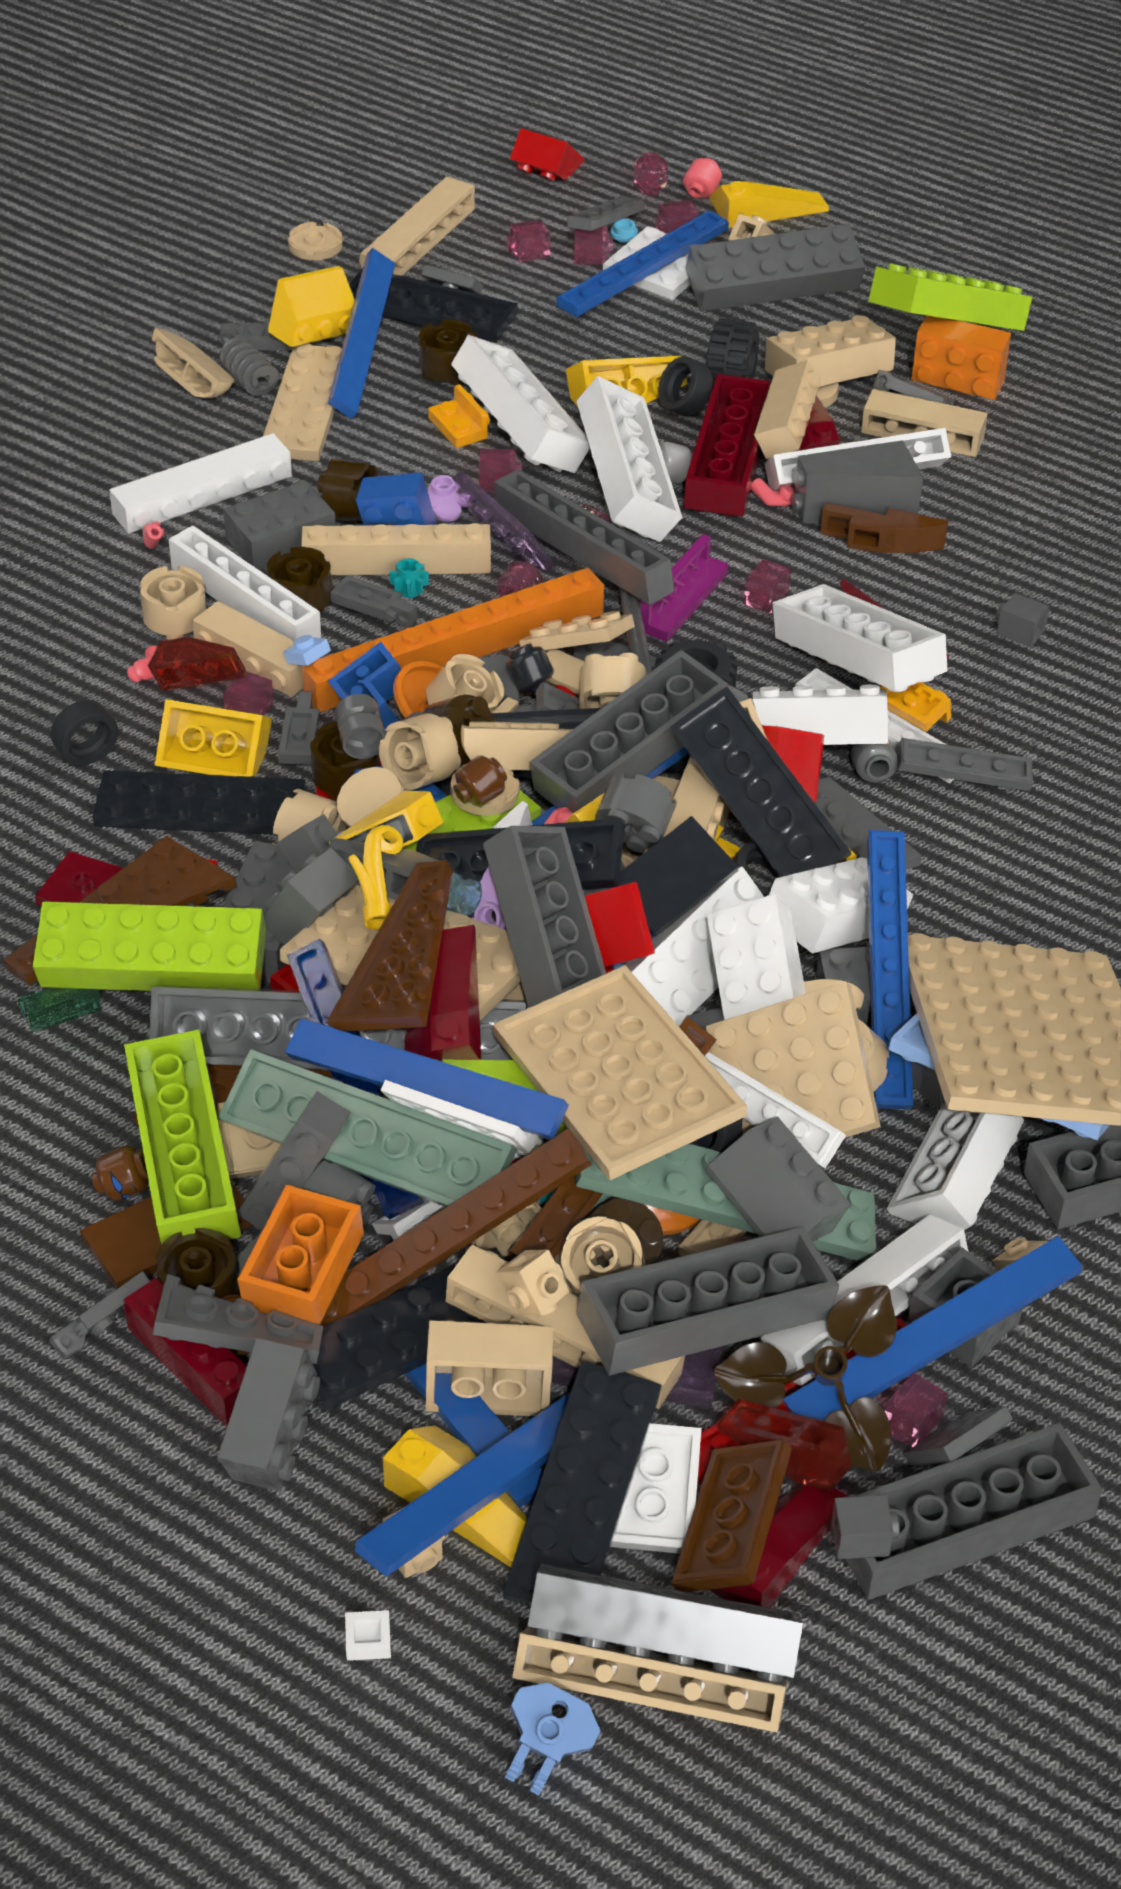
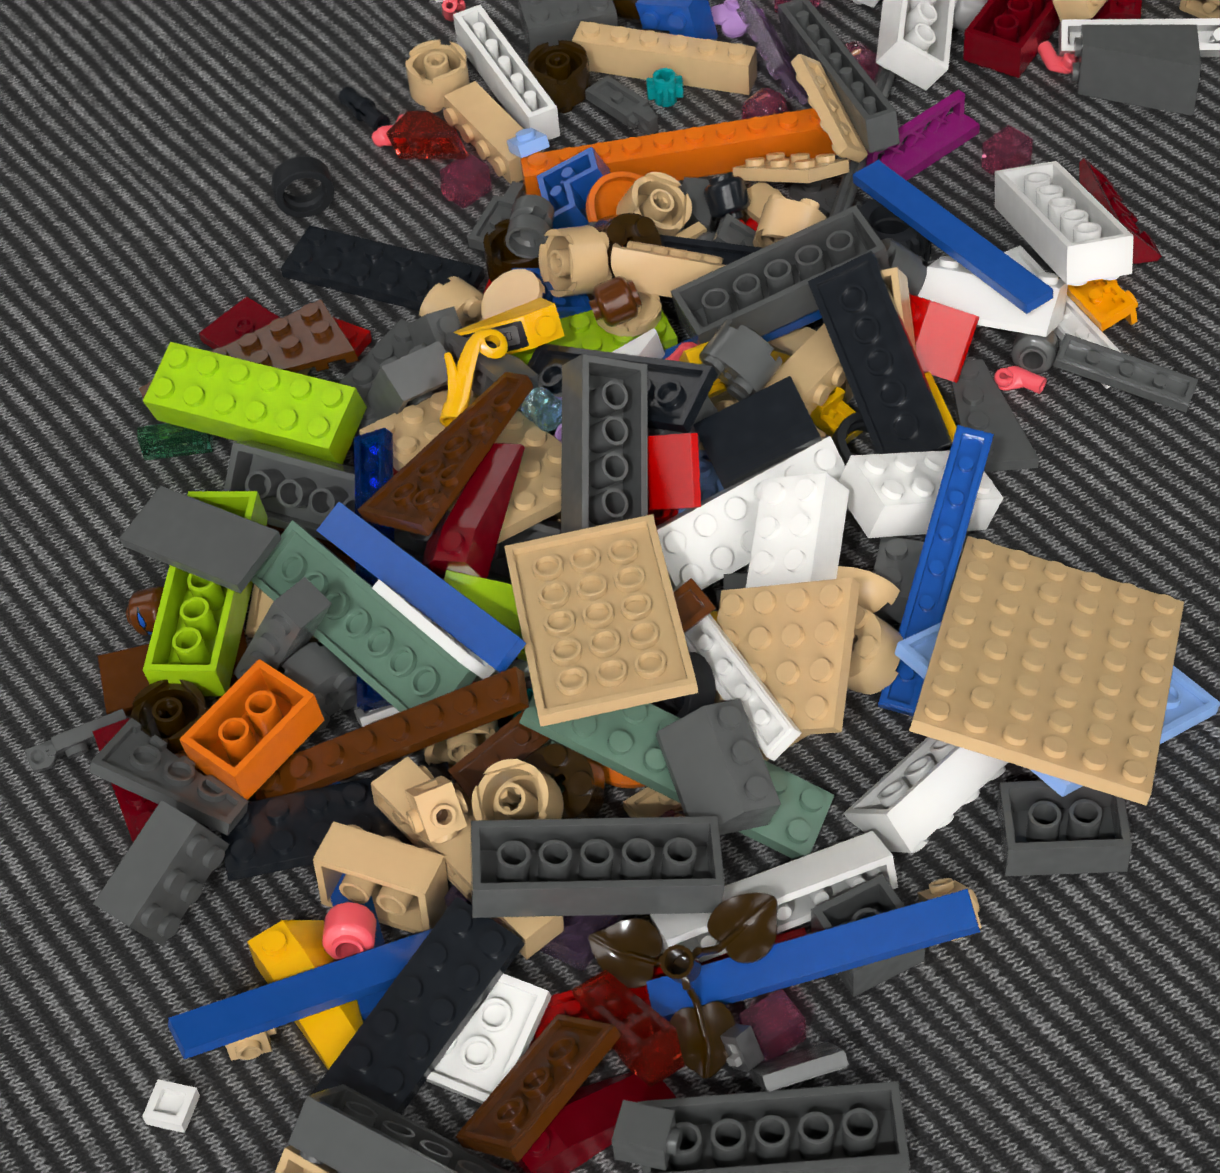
camera: 25 degrees right, 5 degrees up
(105, 648) = (363, 108): none -> black pin
(162, 1086) = (200, 539): none -> dark grey tile
(212, 740) = (416, 214): yellow slope -> none
(476, 1424) = (348, 930): none -> coral head
(588, 563) = (829, 108): none -> tan plate
(766, 666) = (953, 237): none -> blue tile
(869, 787) = (1017, 377): none -> coral arm
(887, 533) = (1152, 118): reddish brown slope -> none
(900, 1433) = (742, 1047): none -> flat silver piece

